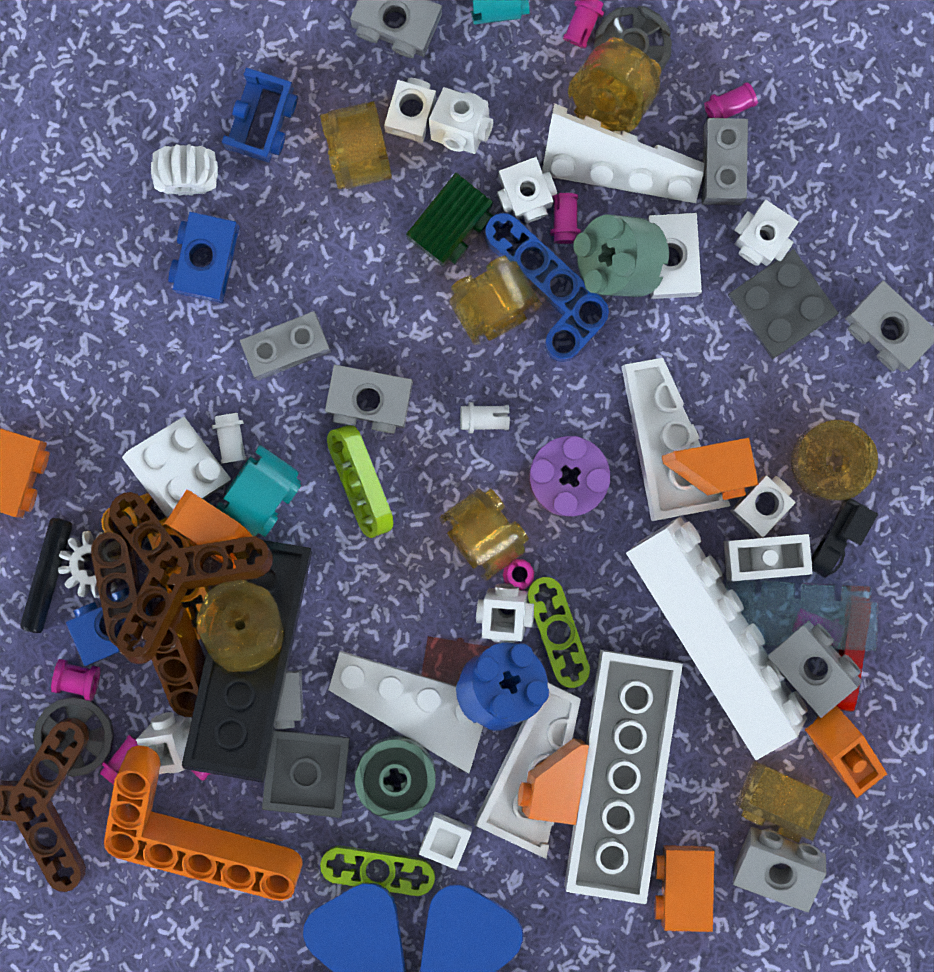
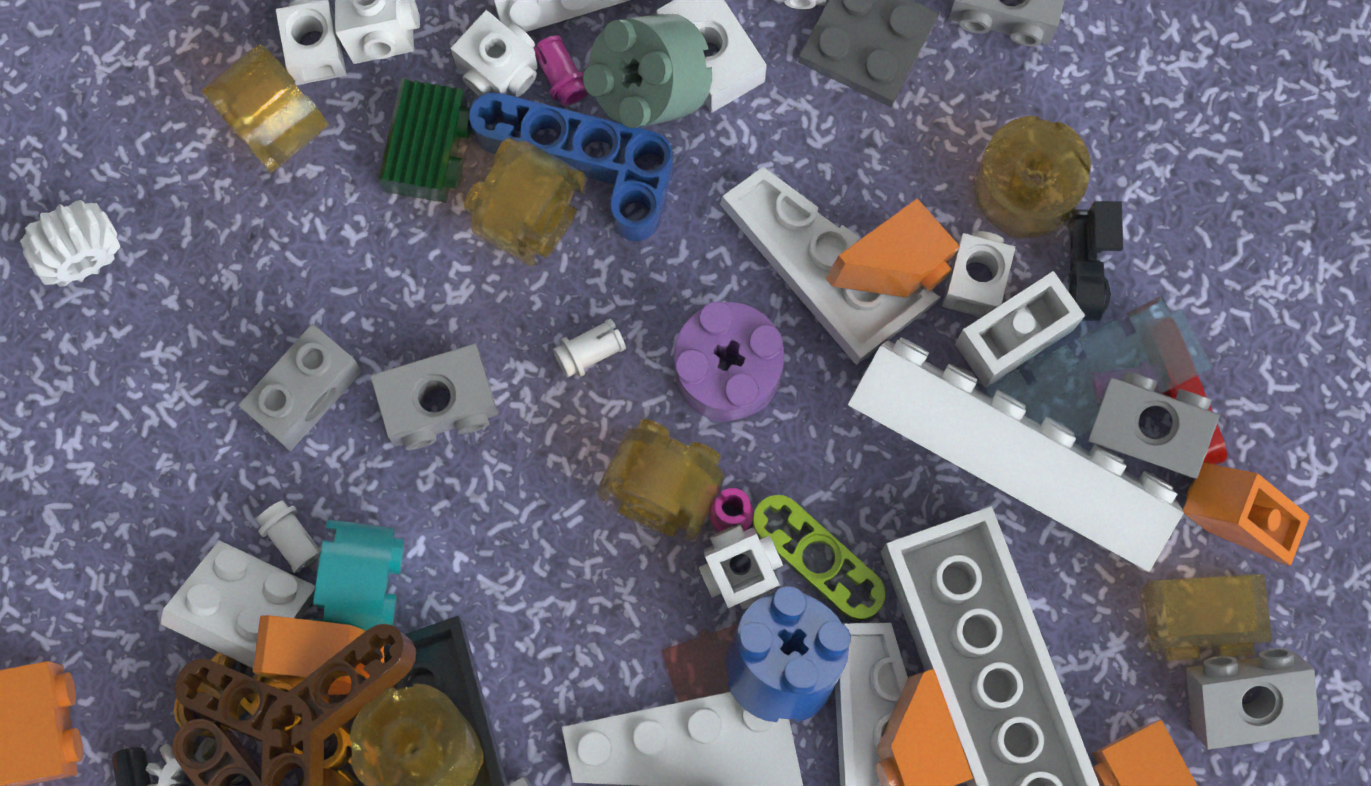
camera: 25 degrees left, 10 degrees down
(207, 281) = (165, 362): blue brick -> none
(245, 111) = (112, 140): blue window -> none
(360, 481) = (501, 524): lime beam -> none

